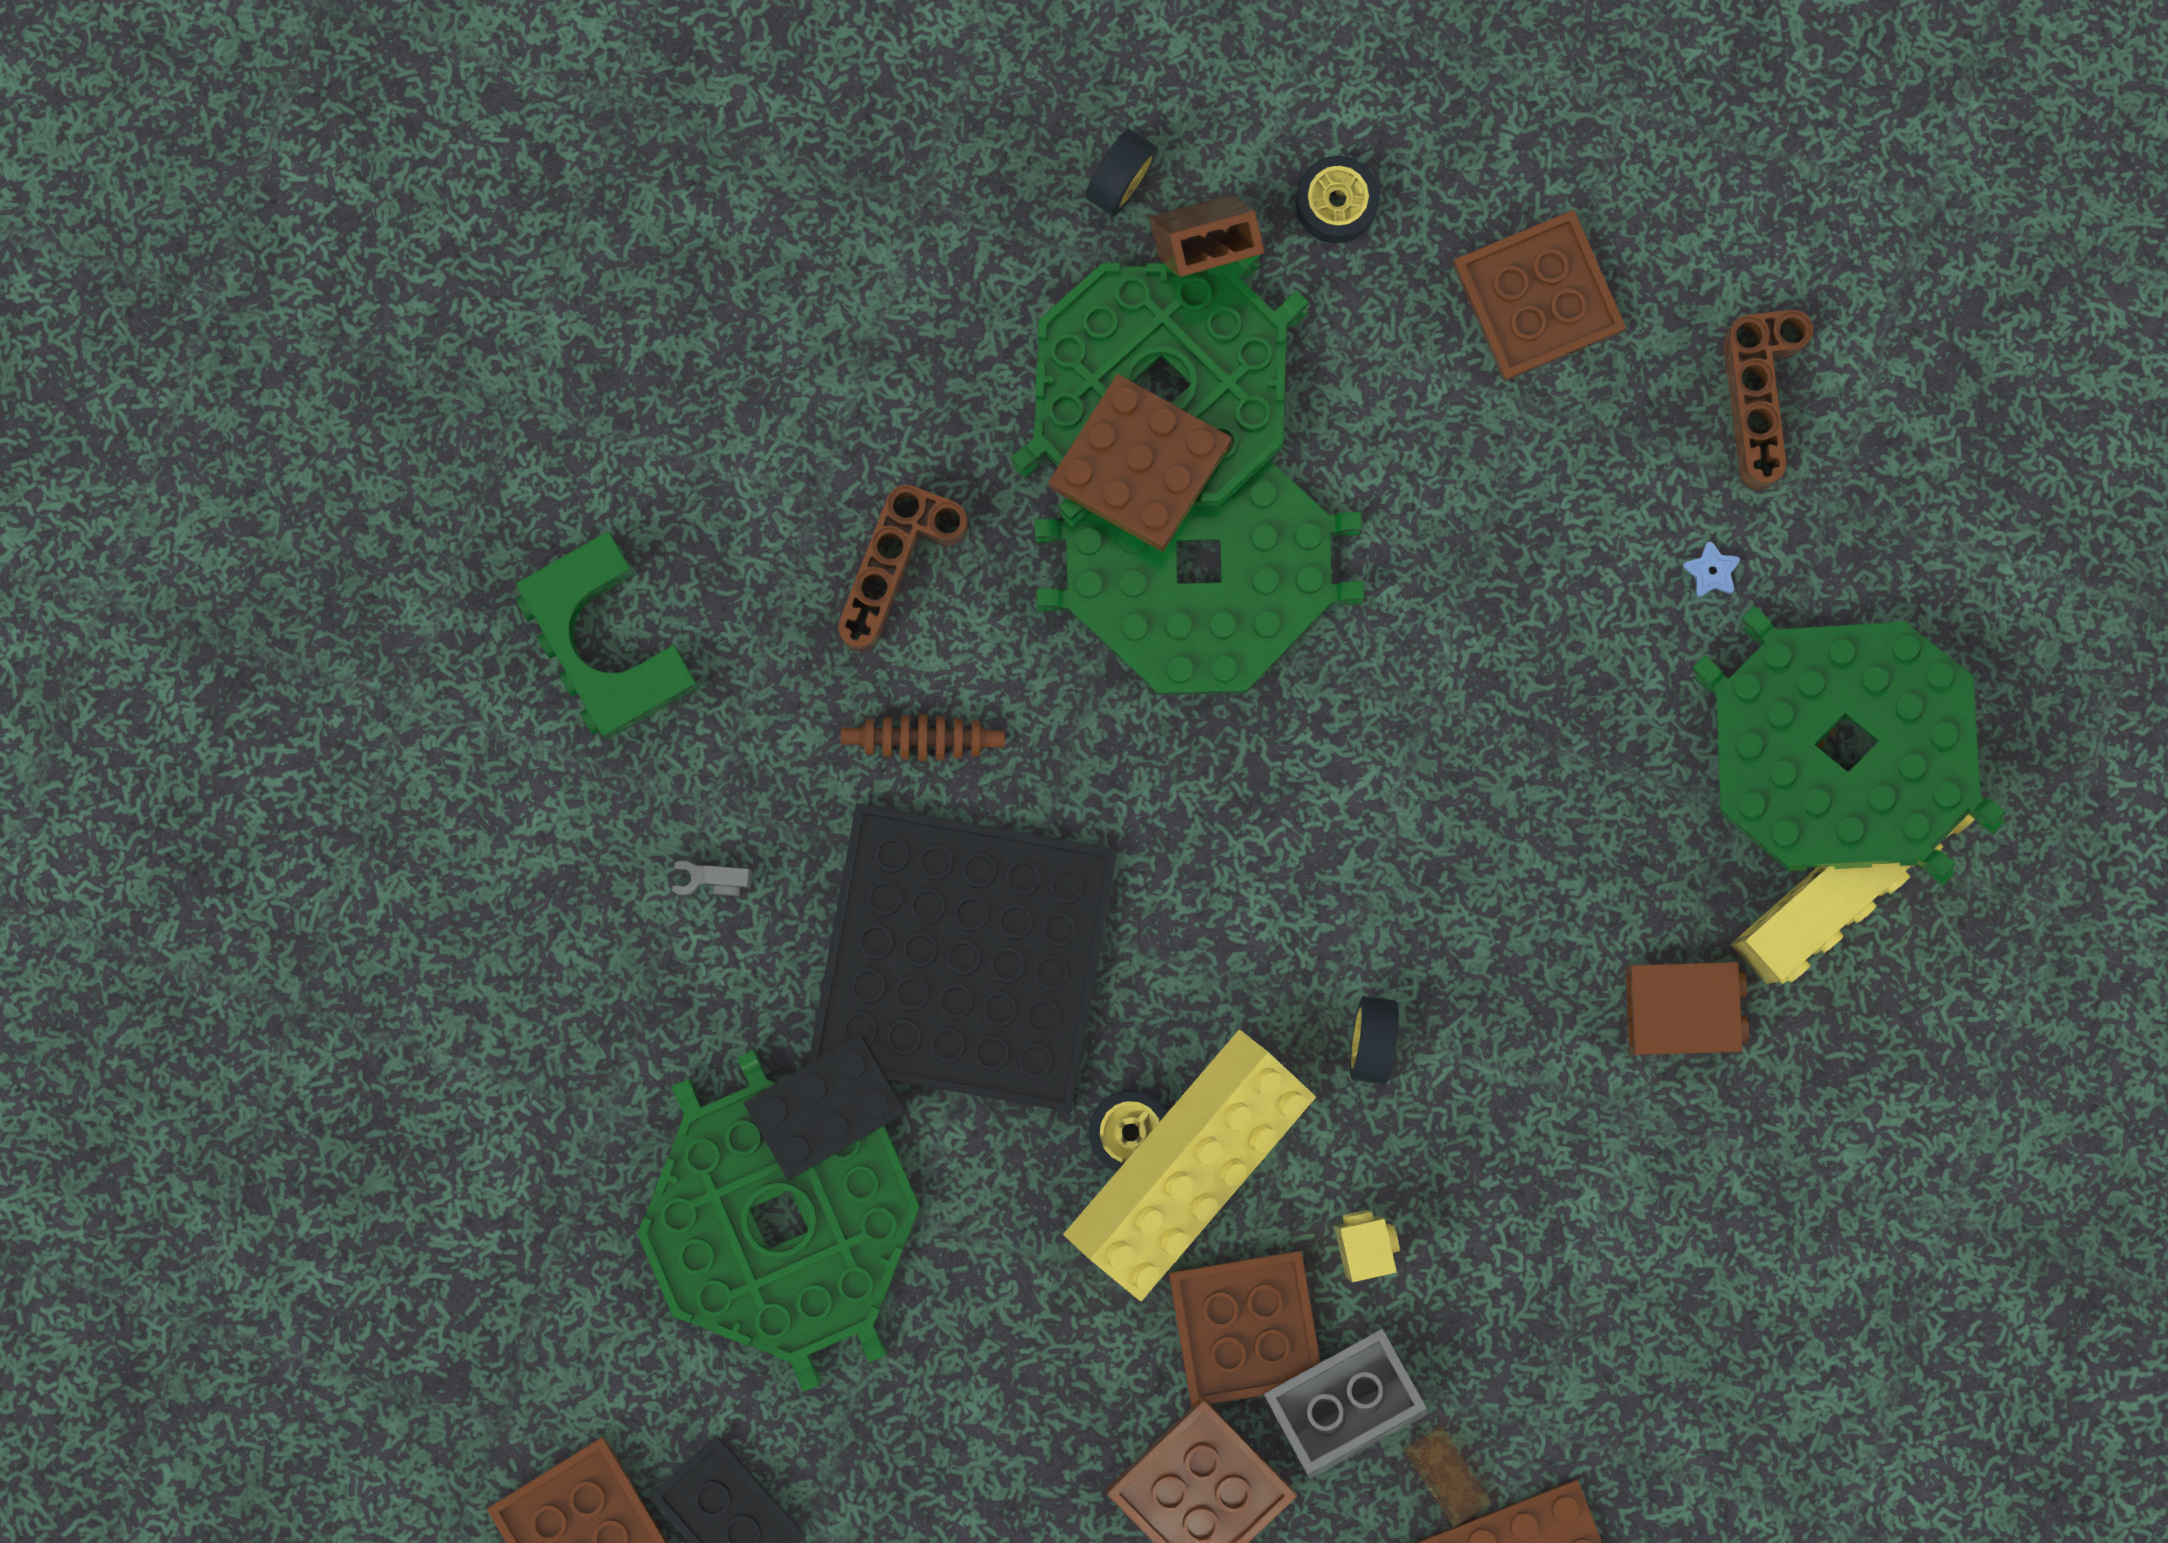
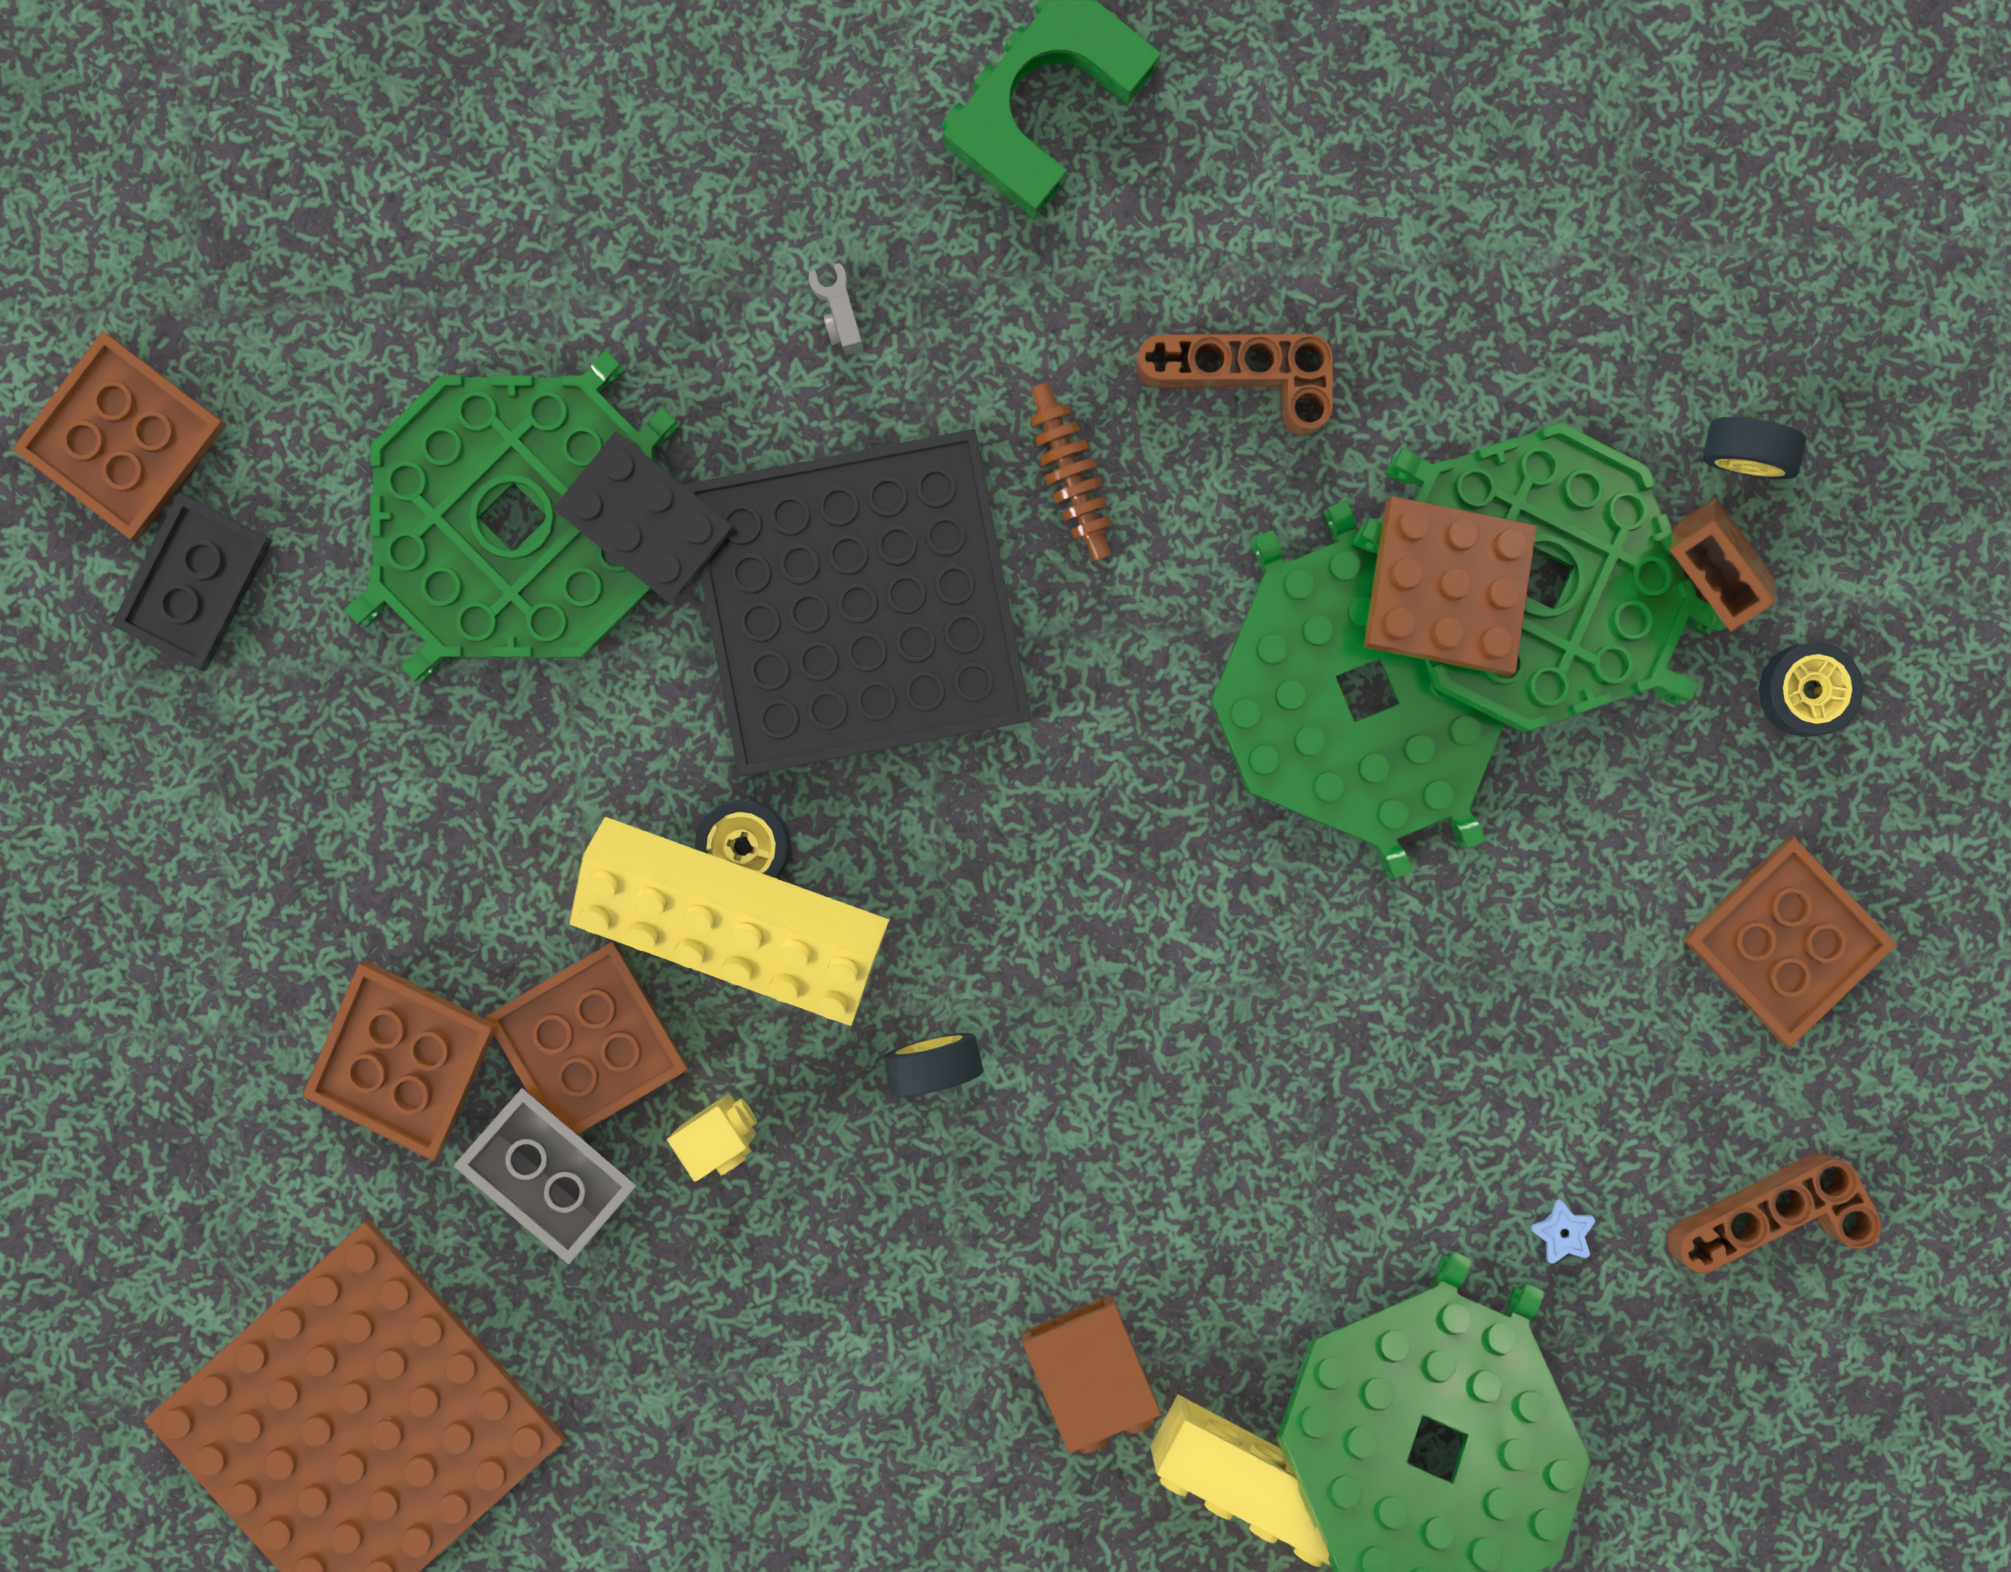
camera: 70 degrees right, 5 degrees up
(1447, 1476) = (516, 1305): clear orange tile -> none

